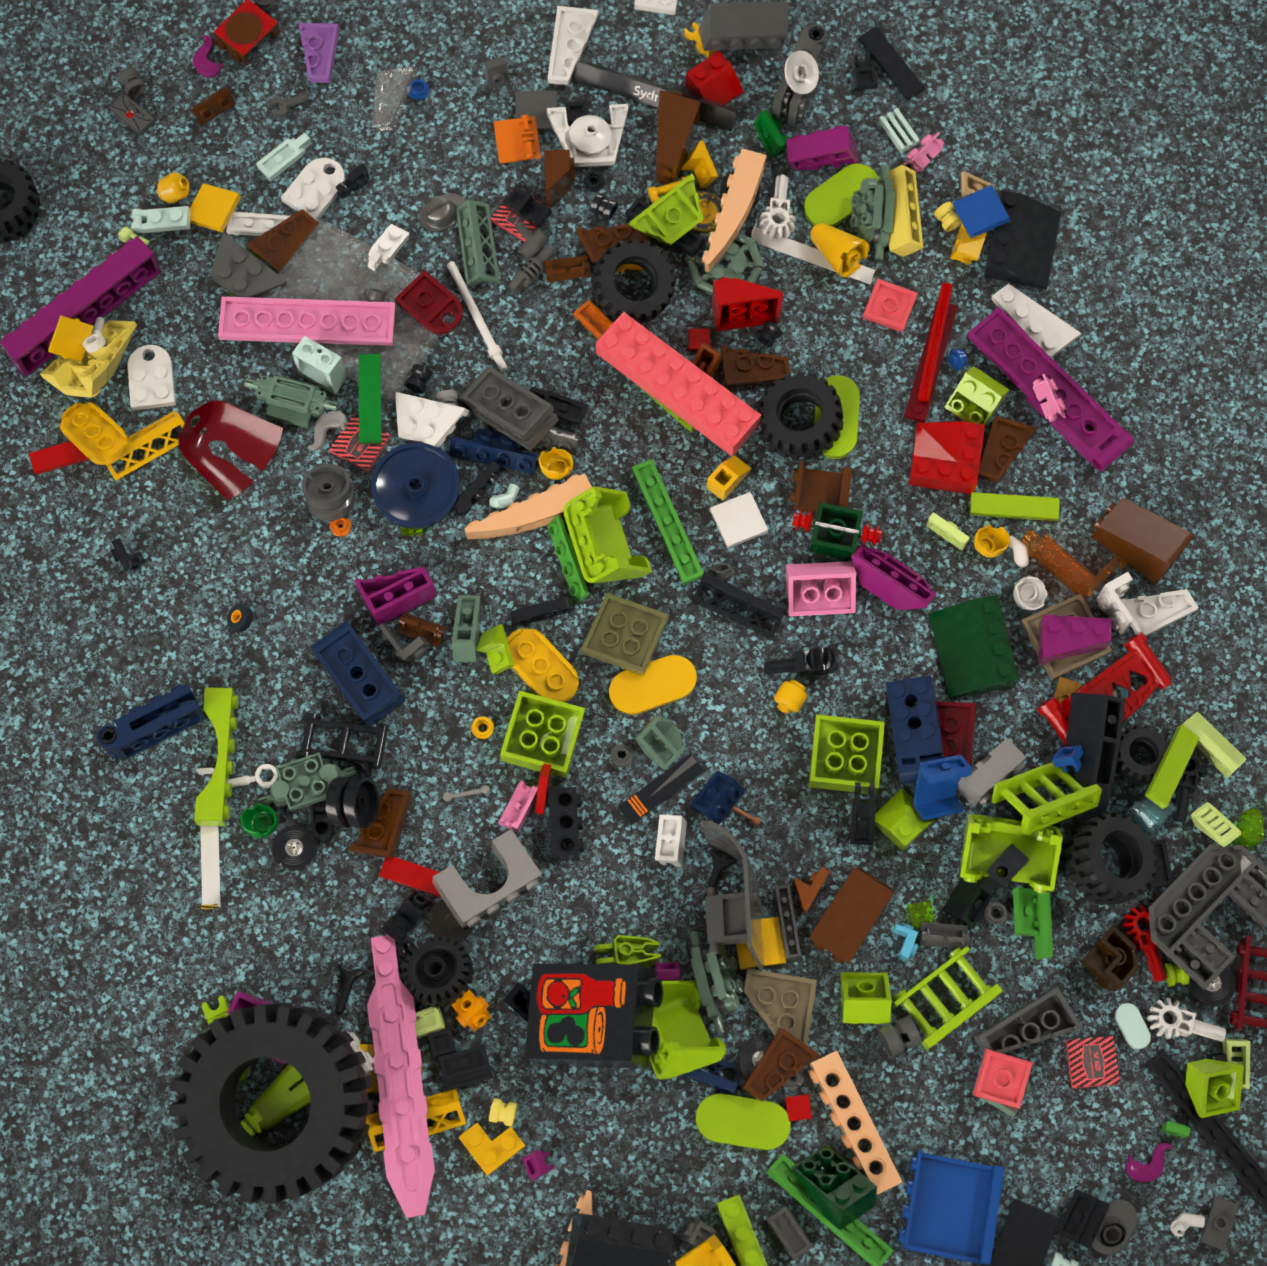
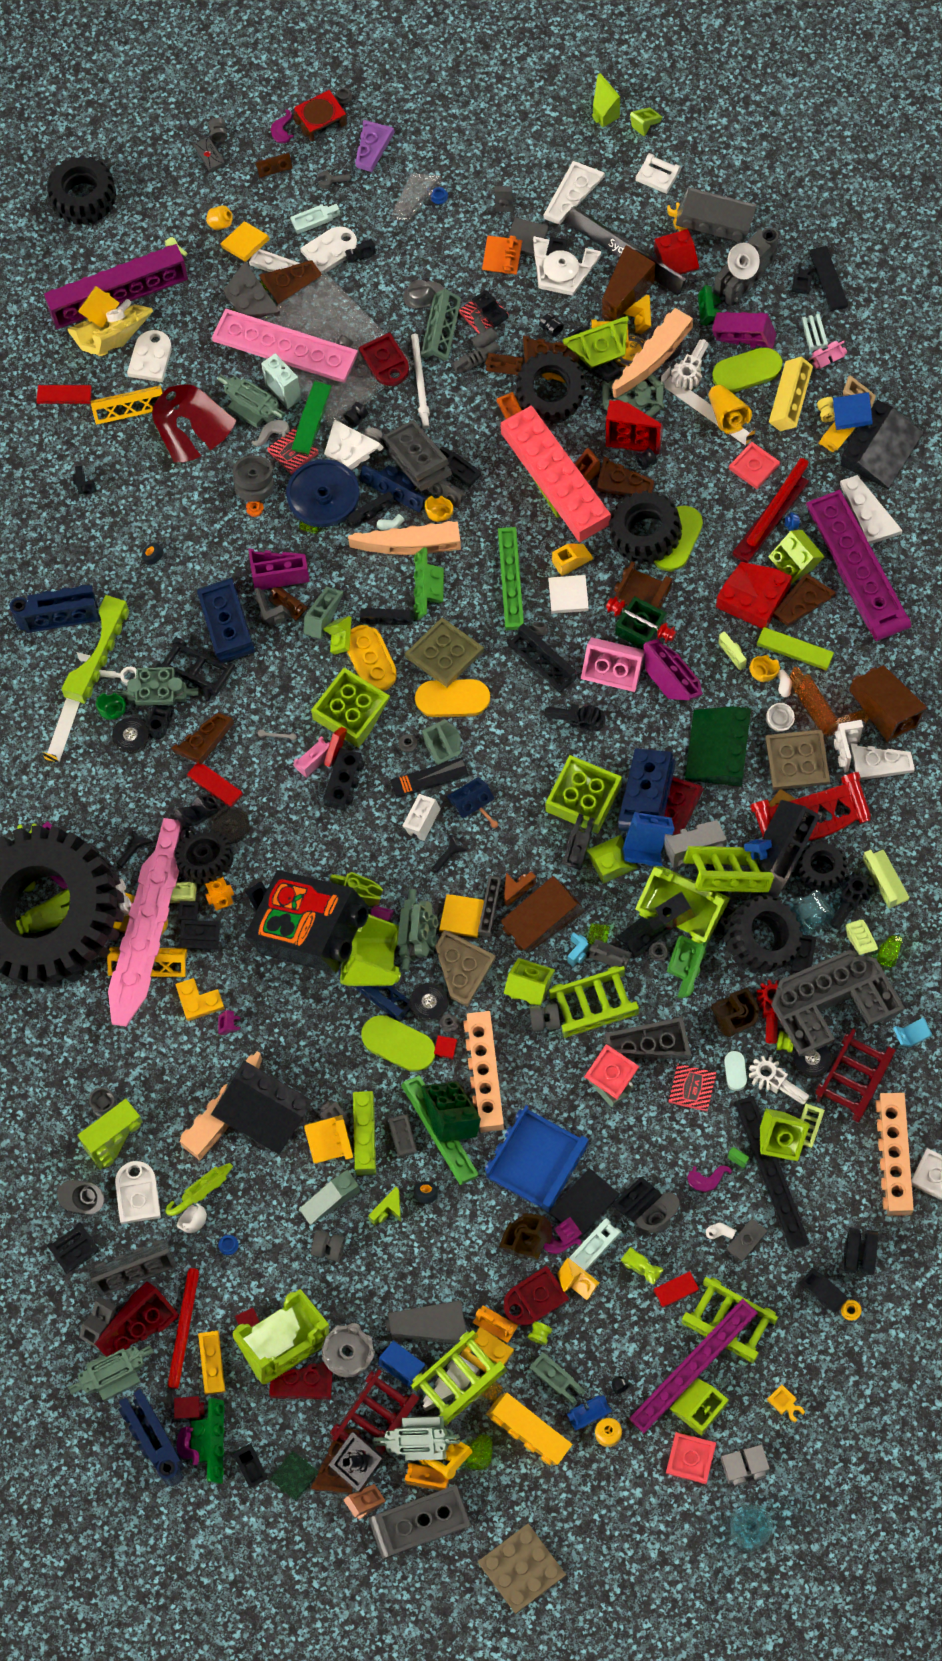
camera: 25 degrees right, 5 degrees down
(94, 433) = (92, 383): yellow tile -> none
(160, 219) = (201, 239): light aqua plate -> none
(352, 802) = (185, 711): black wheel -> none
(387, 246) = (368, 307): white hinge -> none
(471, 906) = (248, 817): light grey arch -> none
(482, 721) = (307, 685): yellow plate -> none
(503, 1112) = (215, 976): light yellow wheel -> none
(558, 174) = (522, 290): reddish brown slope -> none
(594, 176) = (551, 299): black plate -> none
(599, 536) = (452, 572): lime windscreen -> none
(697, 337) = (592, 444): red tile -> none
(733, 916) = (451, 882): dark grey door -> none
(778, 1063) = (440, 1006): reddish brown wing -> none
(790, 696) = (557, 738): yellow head -> none
(874, 211) = (766, 387): sand green piece -> none
(1046, 390) = (852, 563): bright pink hinge -> none
(1071, 636) = (799, 758): magenta wedge -> none
(1172, 766) = (840, 879): lime tile -> none

